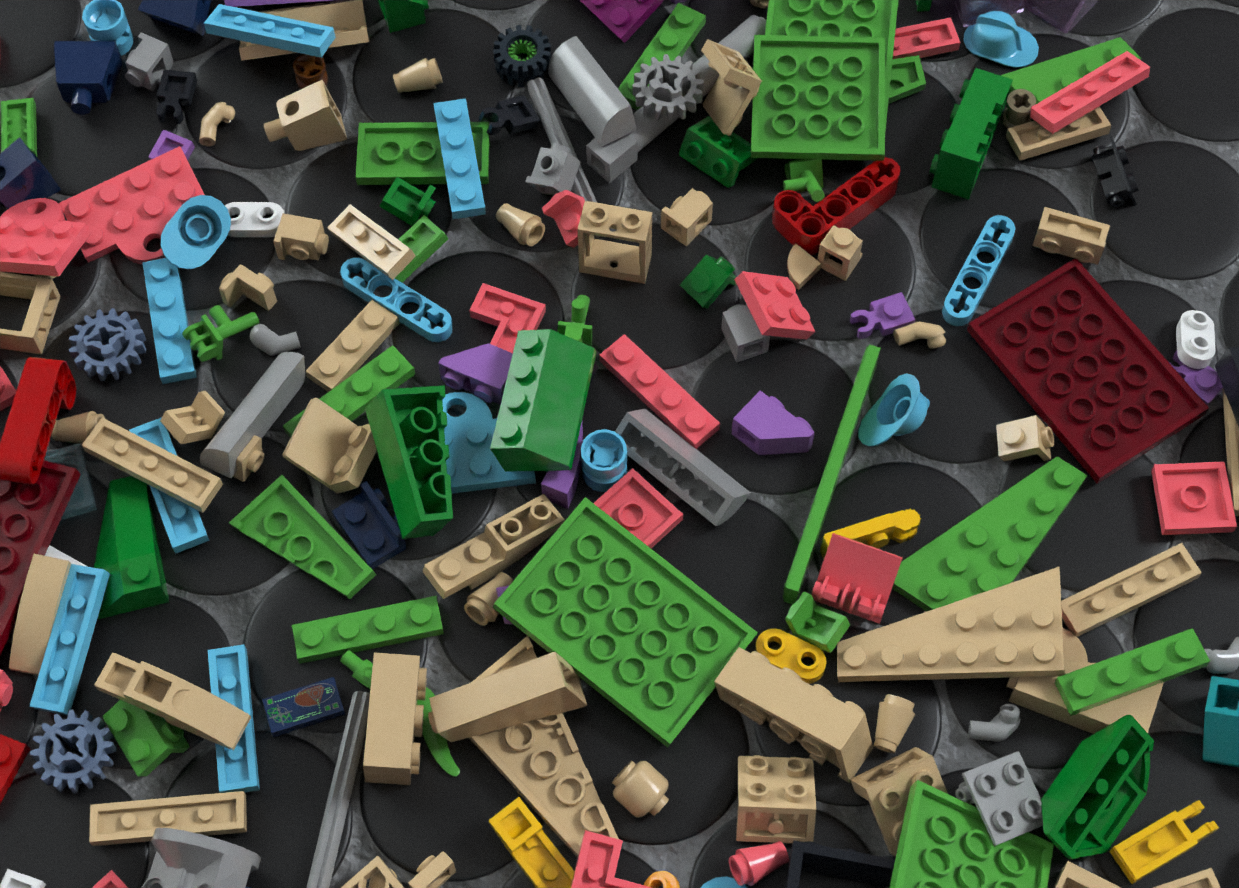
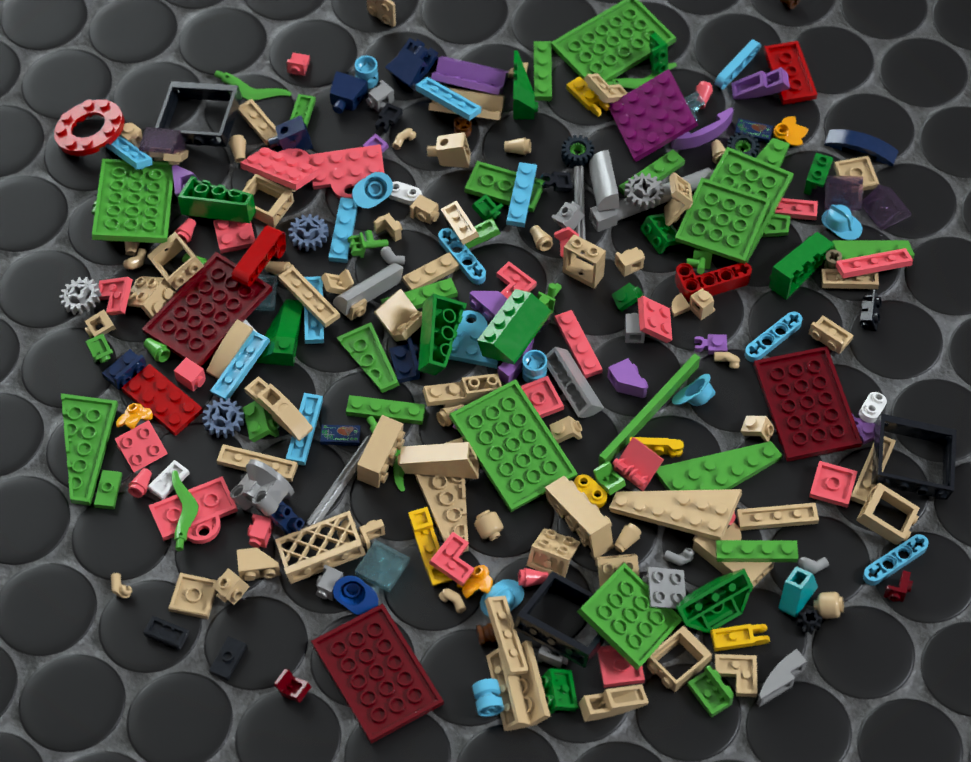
camera: 20 degrees right, 5 degrees down
(703, 556) = (566, 429): none -> tan bracket

